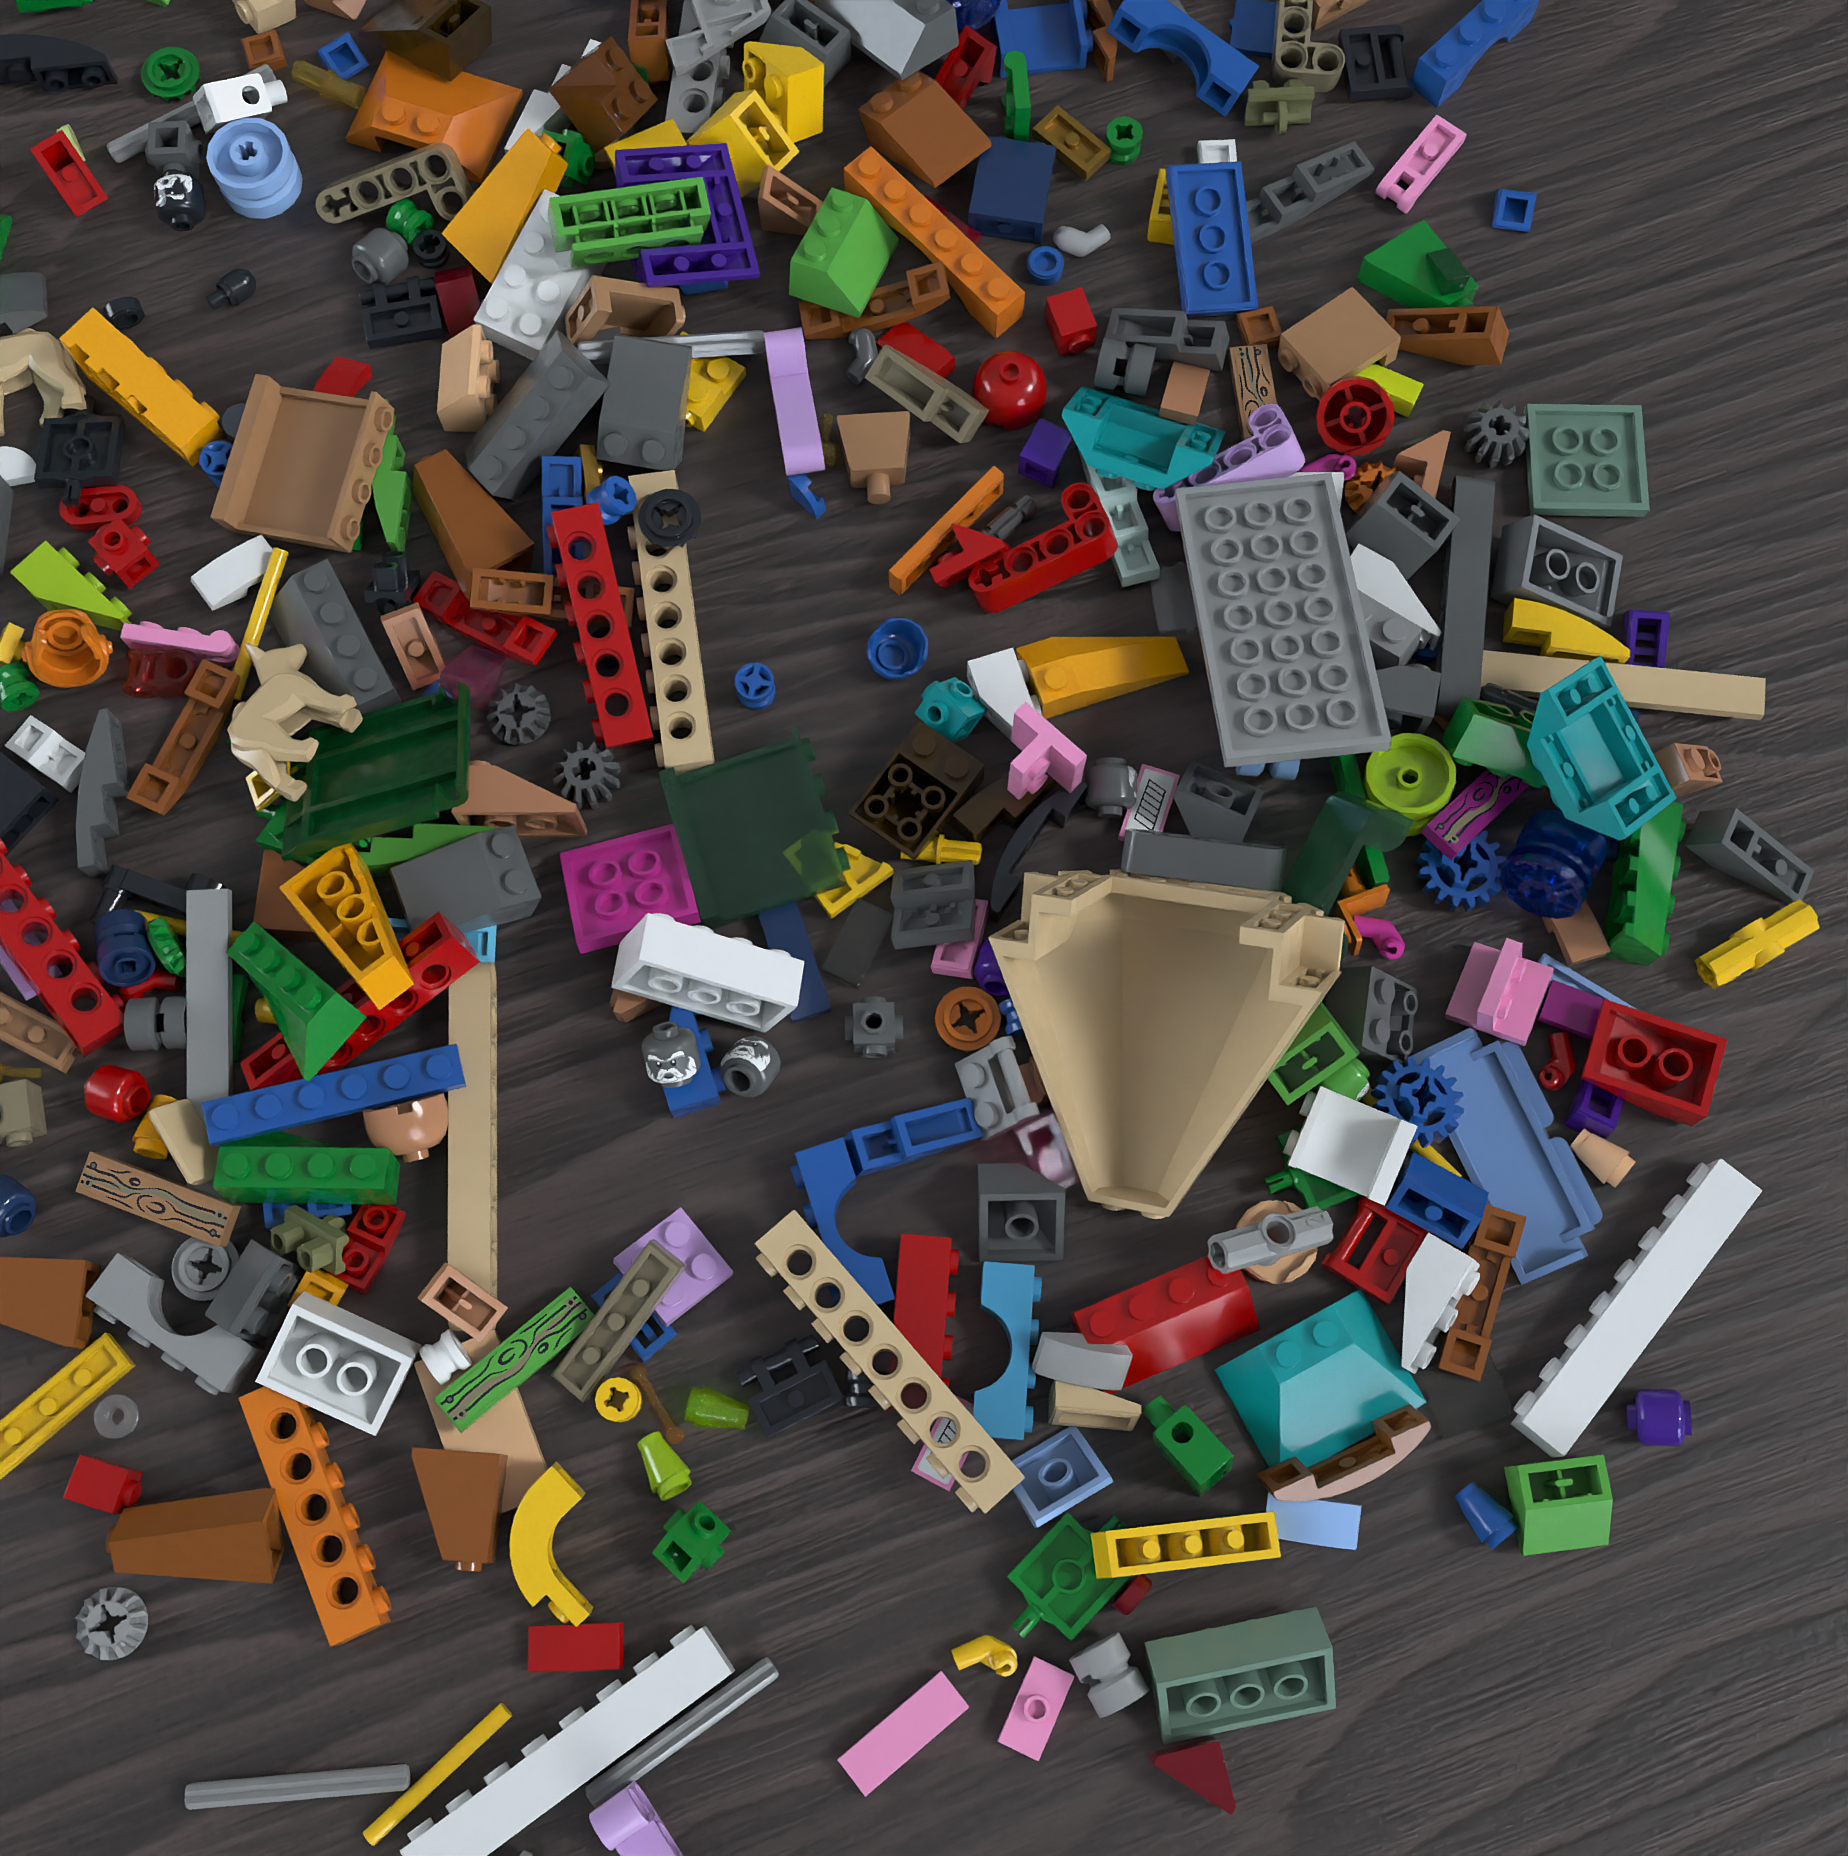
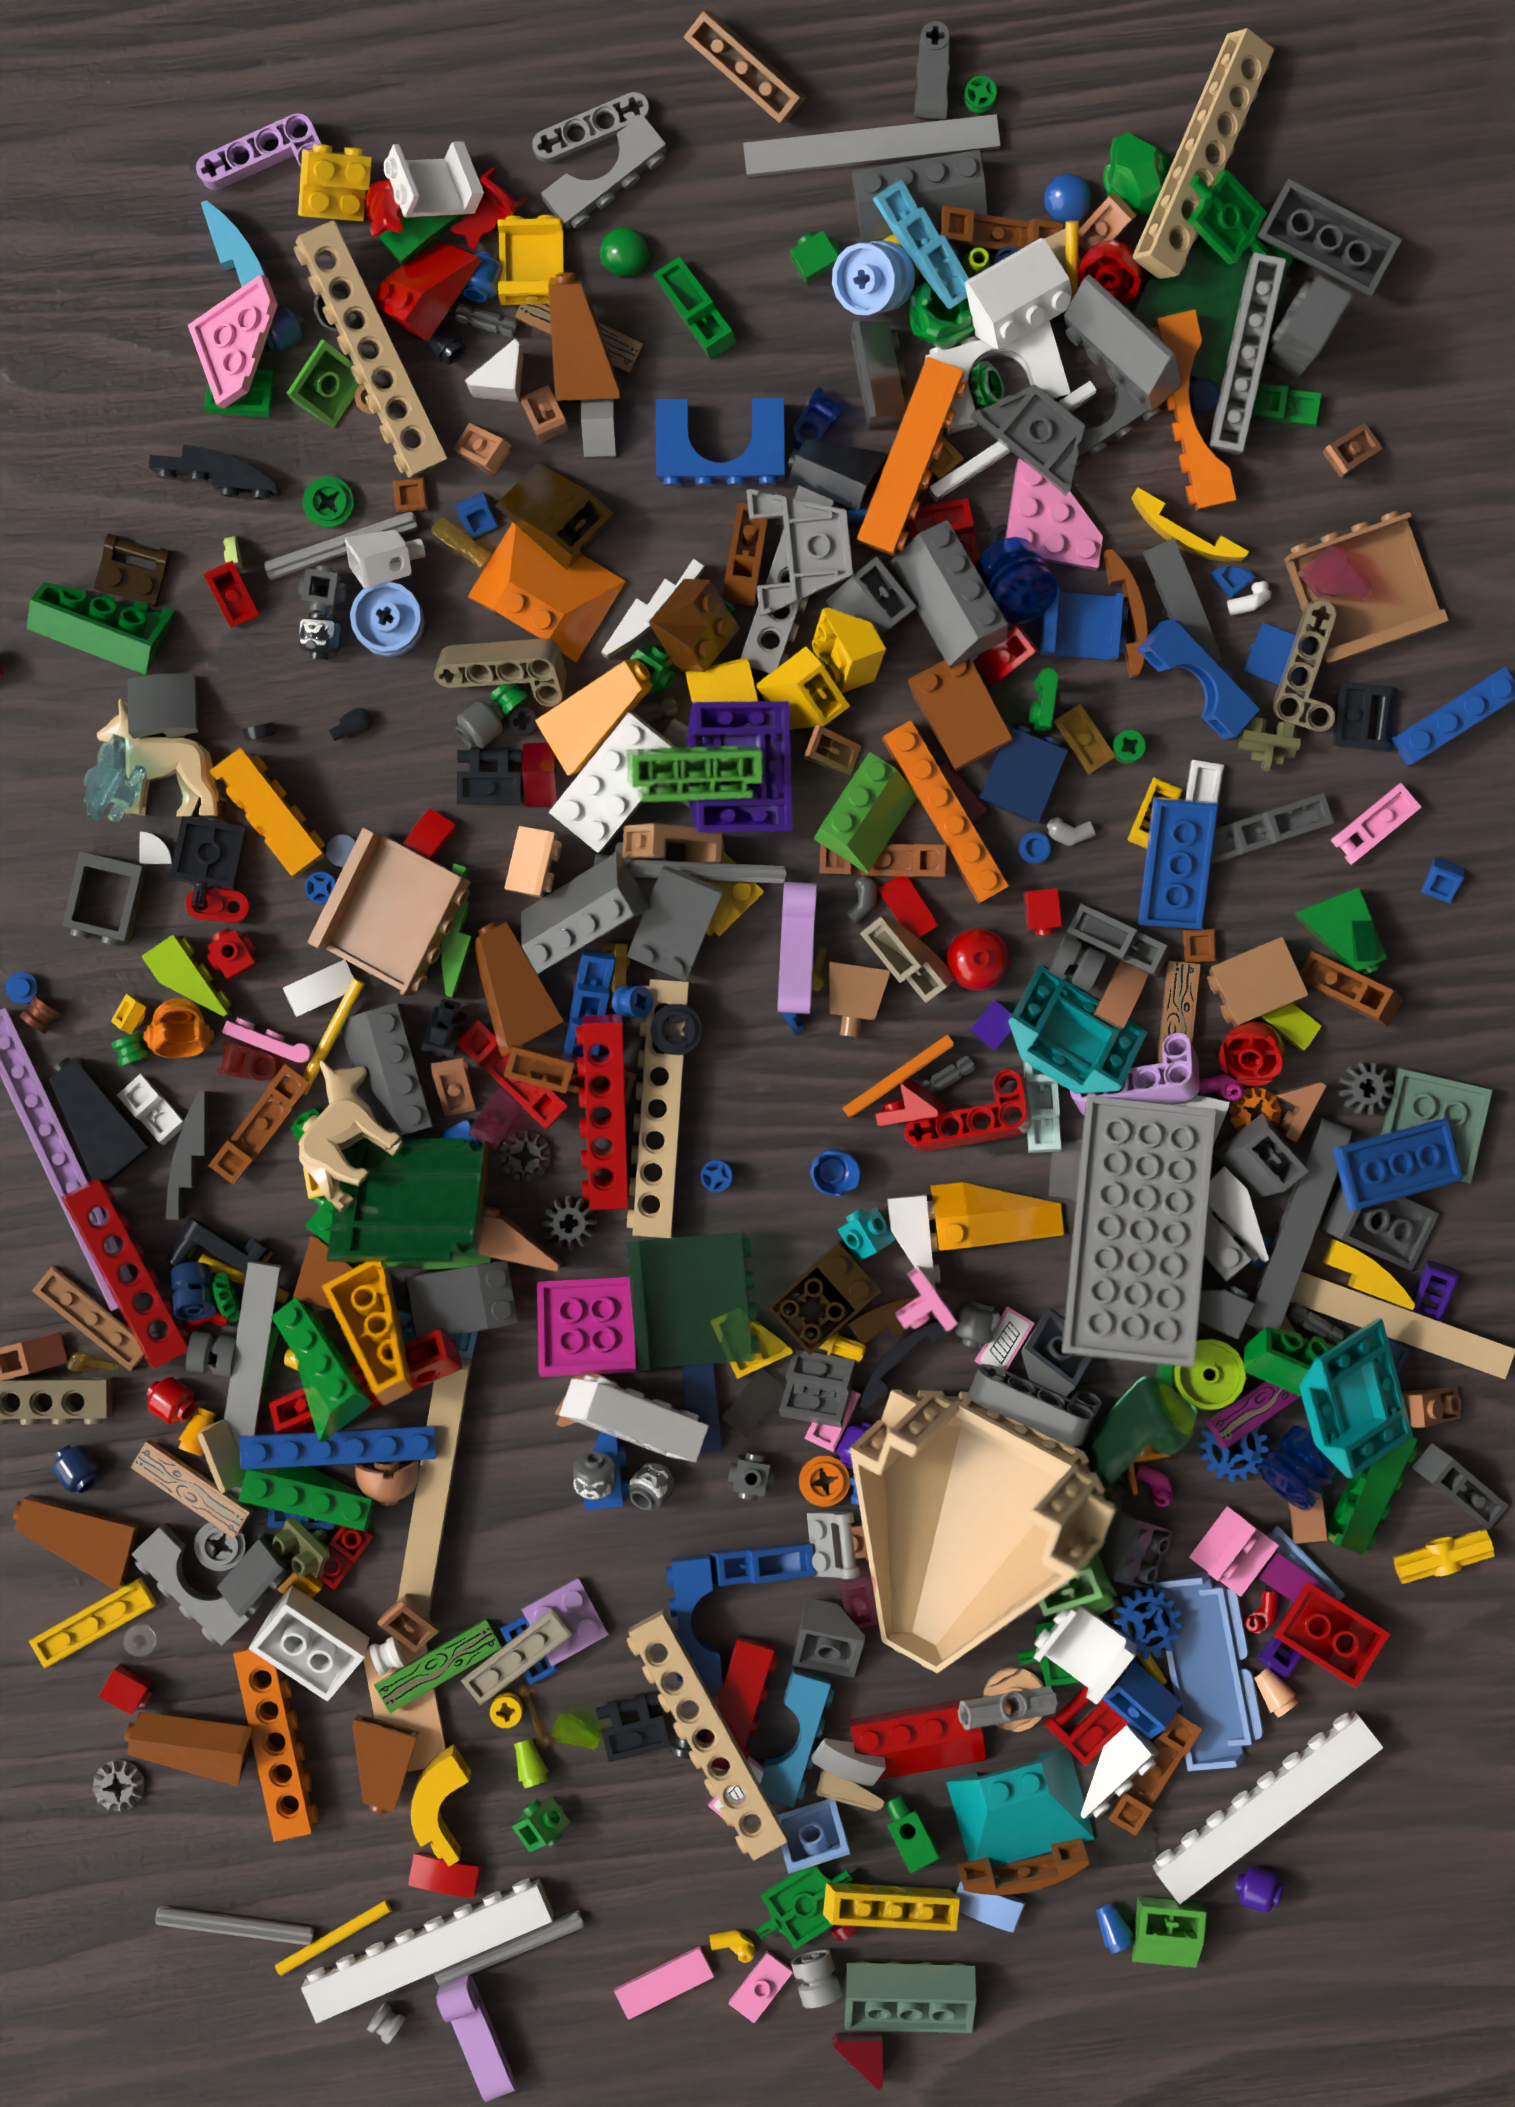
camera: 15 degrees right, 15 degrees up
(1561, 491) = (1398, 1164): none -> blue tile

